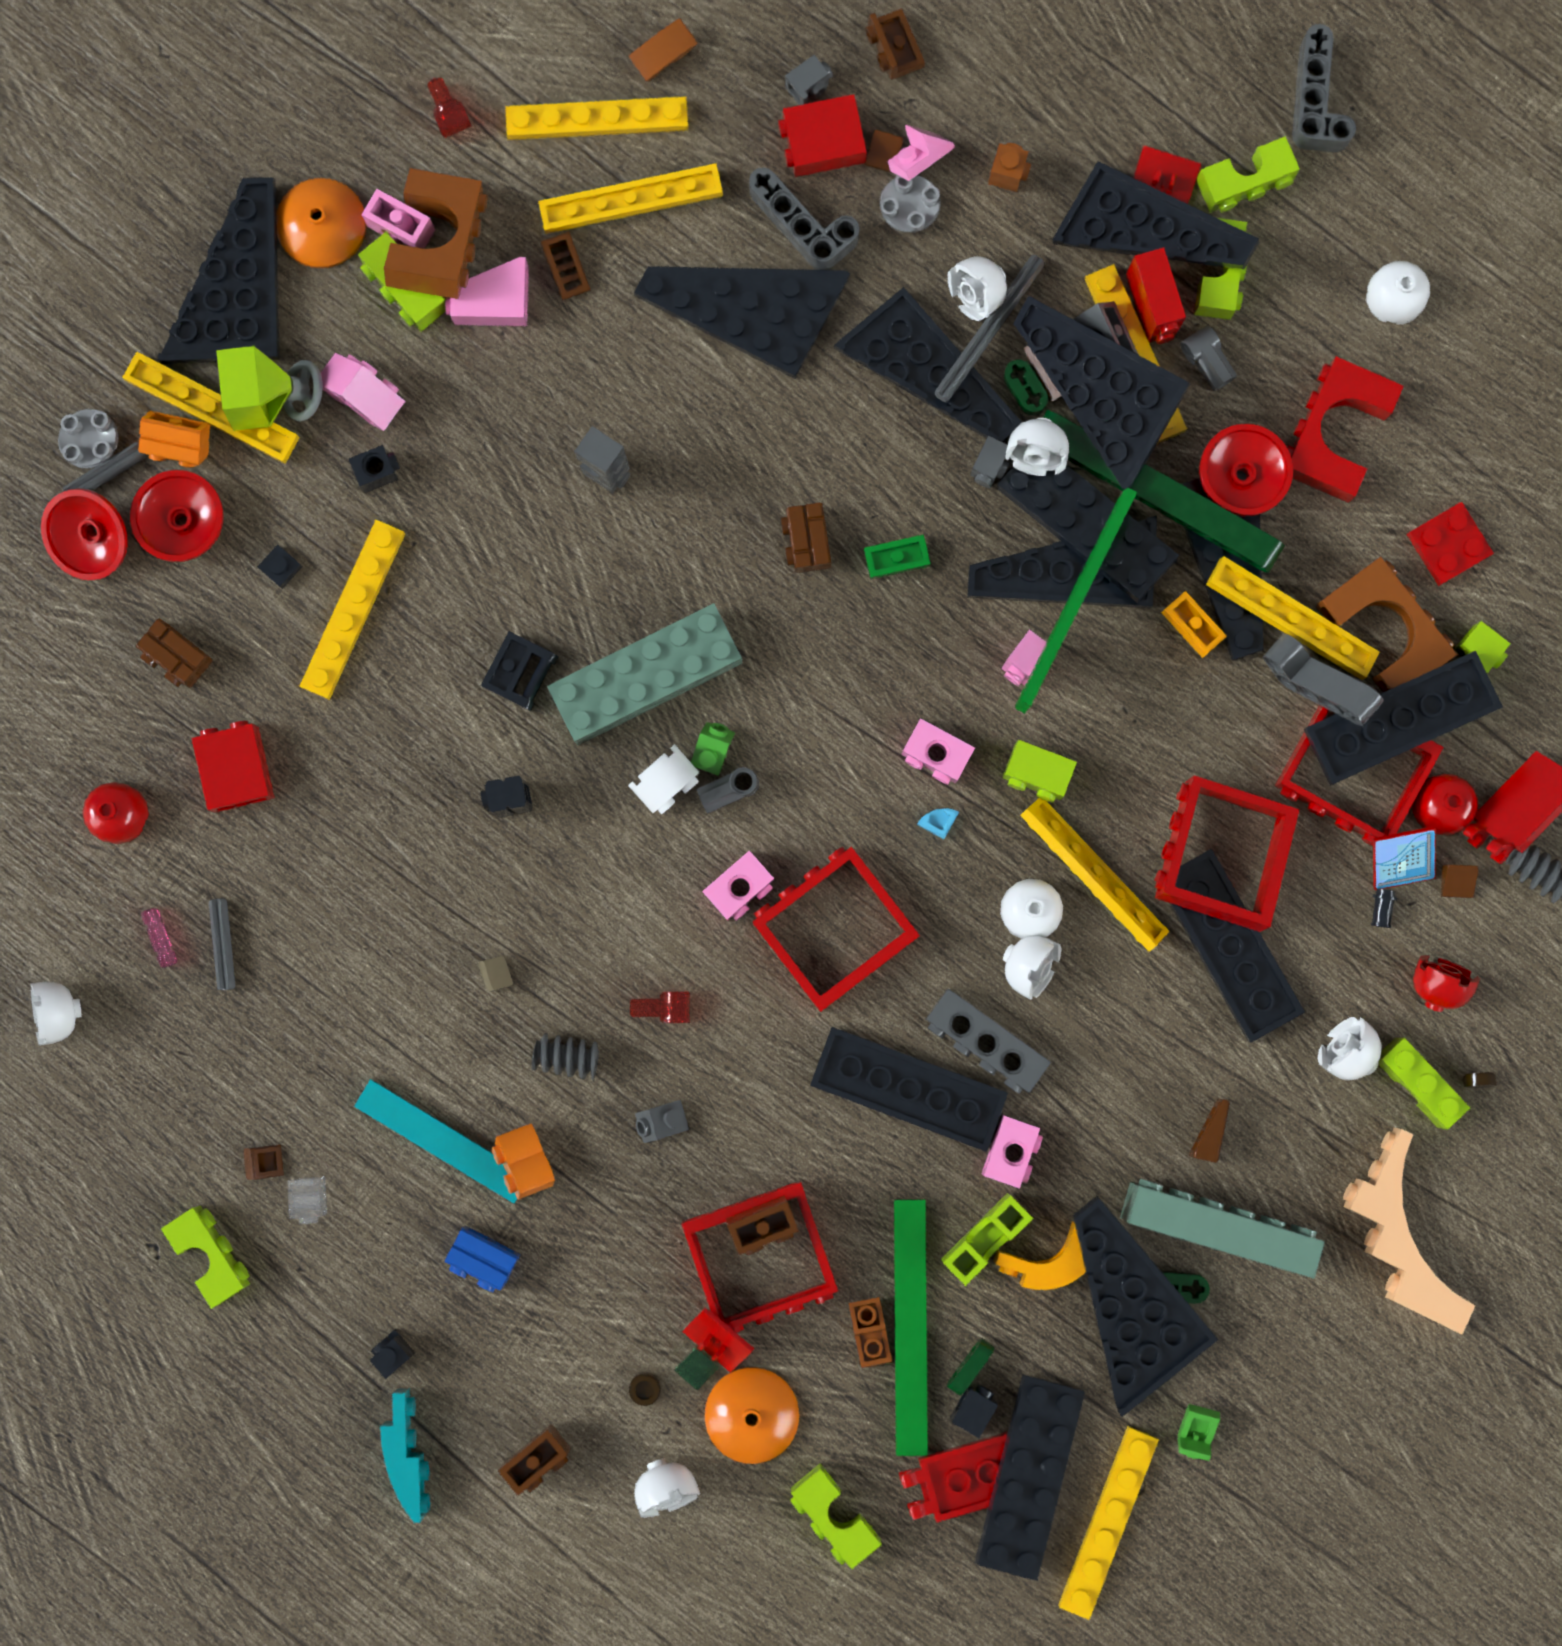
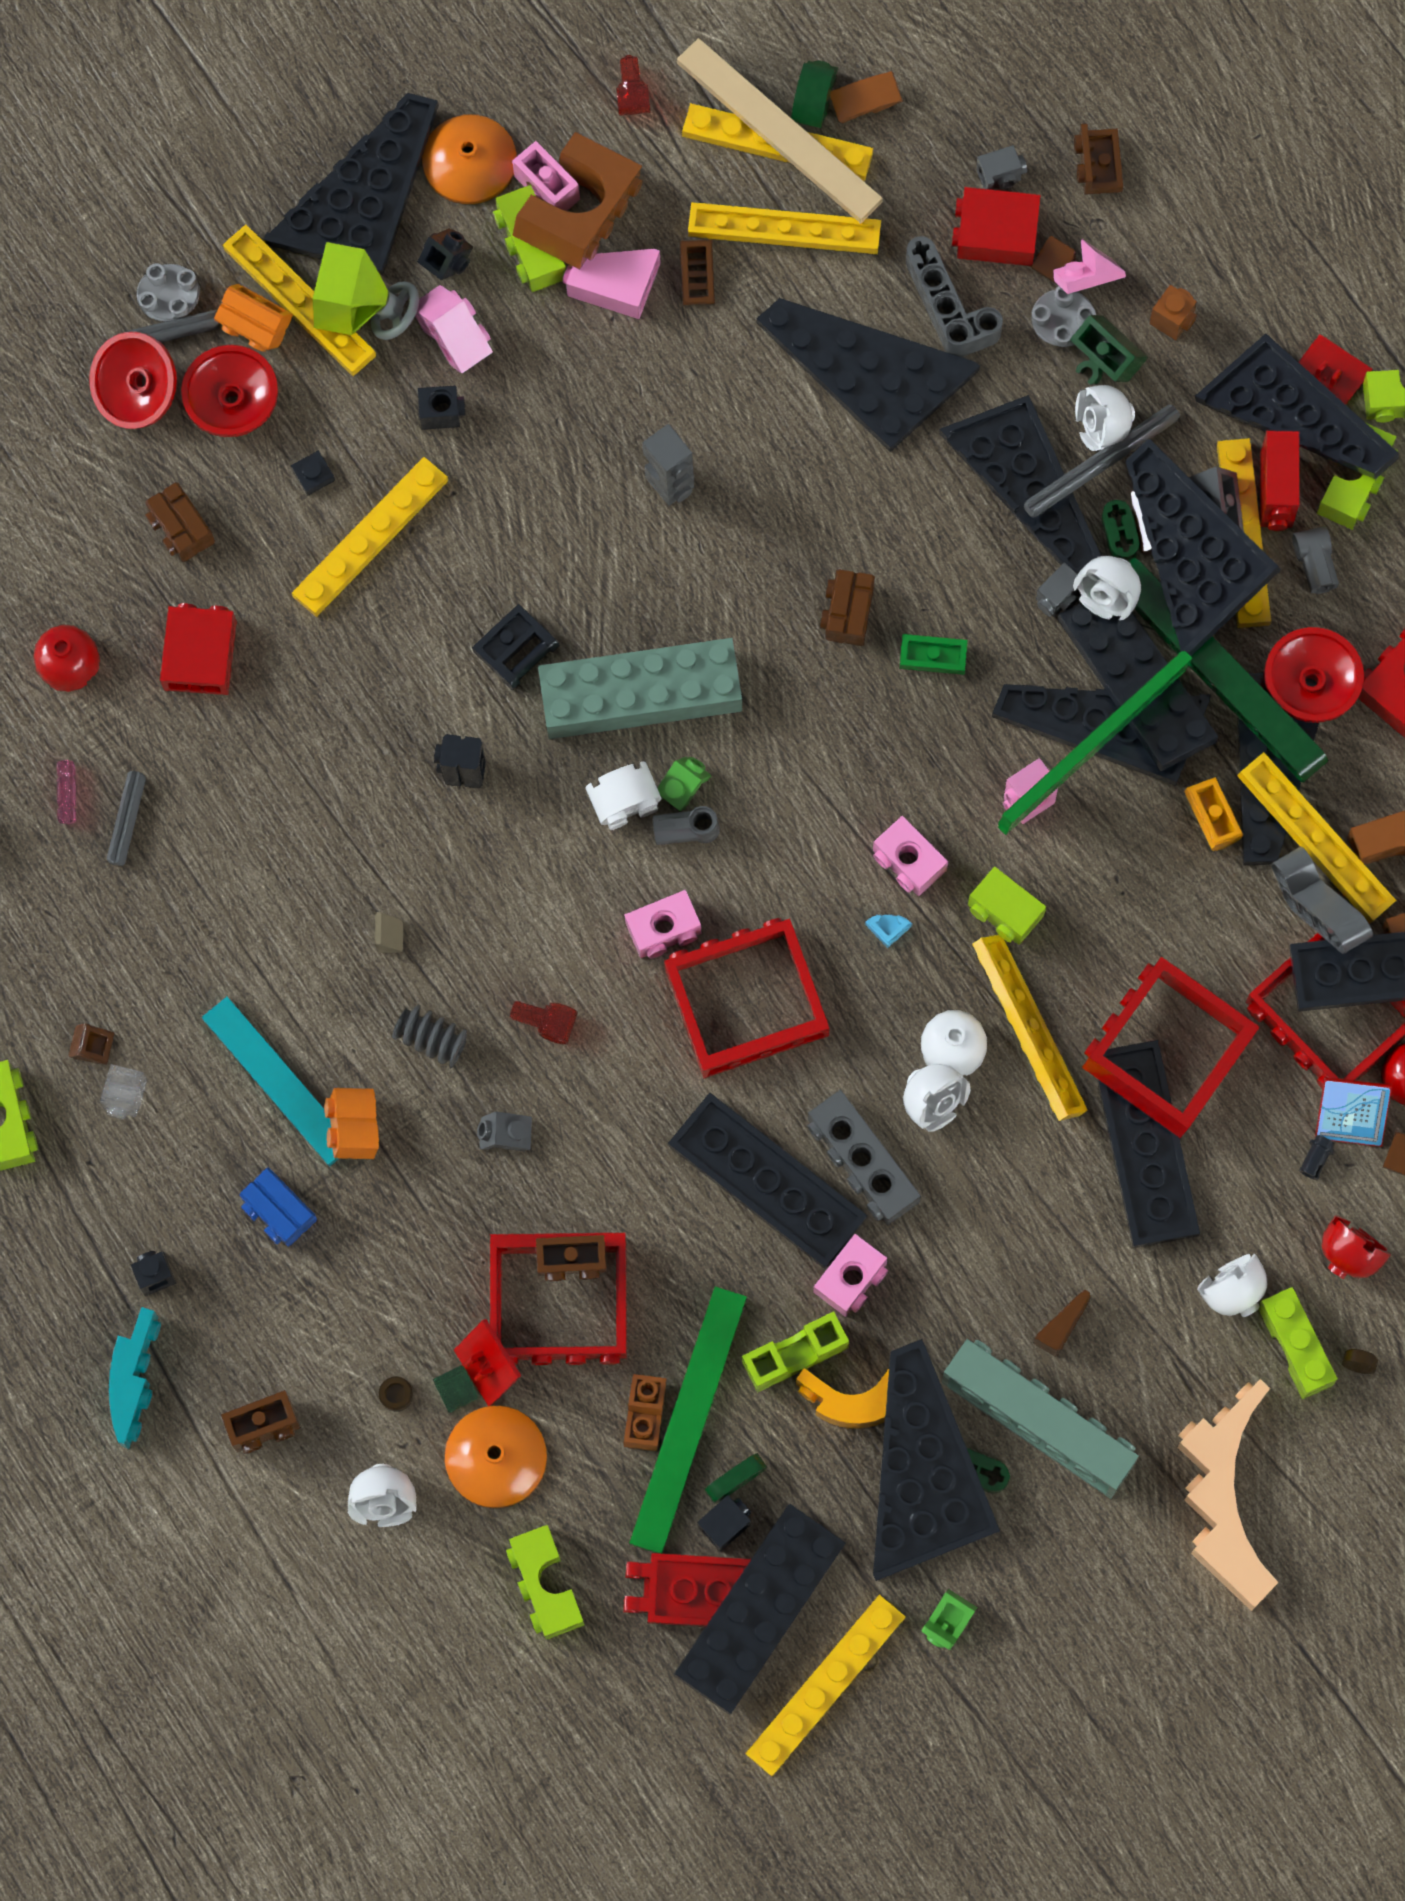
camera: 20 degrees right, 10 degrees down
(330, 322) = (445, 254): none -> black brick
(595, 107) = (779, 130): none -> tan tile
(615, 61) = (813, 93): none -> dark green brick
(961, 222) = (1107, 351): none -> dark green brick

